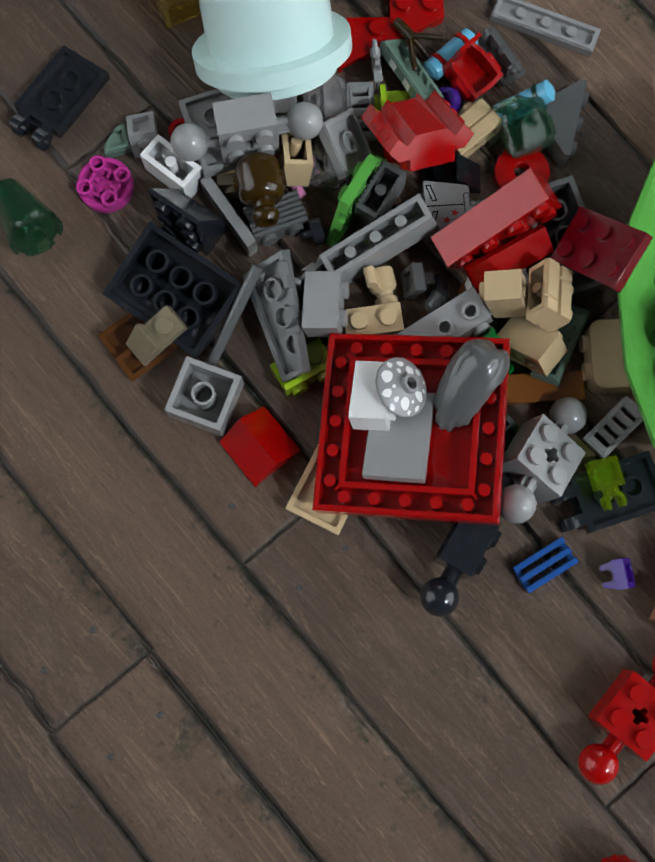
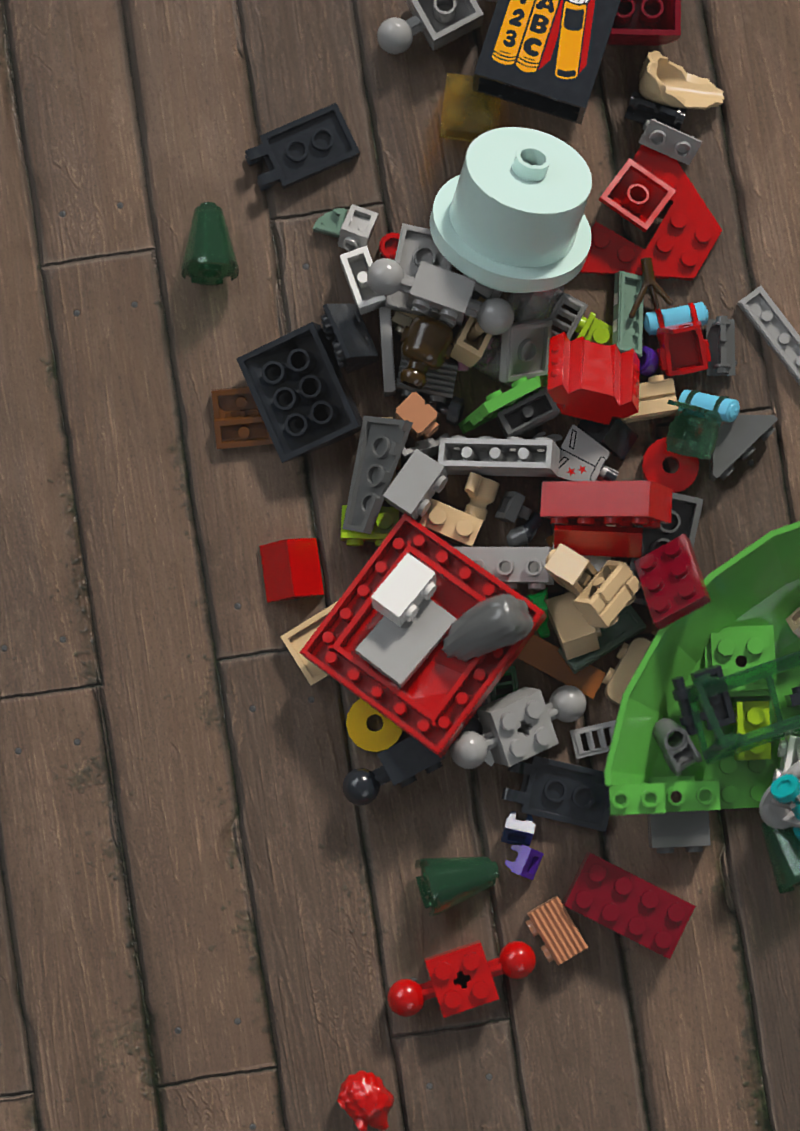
camera: 30 degrees right, 5 degrees up
(105, 184) = (297, 256): dark pink tile -> none
(157, 334) = (260, 423): dark tan slope -> none
(204, 396) = (269, 501): light grey brick -> none
(234, 314) = (333, 447): dark grey bar -> none
(295, 241) = (422, 416): none -> nougat brick
(375, 54) = (597, 297): light grey piece -> none
(401, 387) = (421, 595): light grey dish -> none
(408, 551) = (366, 738): none -> yellow tile
(565, 552) = (493, 816): blue tile -> none
(571, 631) = (453, 880): none -> clear green cone
(598, 551) = (517, 831): none -> dark blue tile
(606, 476) = (563, 774): clear neon green plate -> none

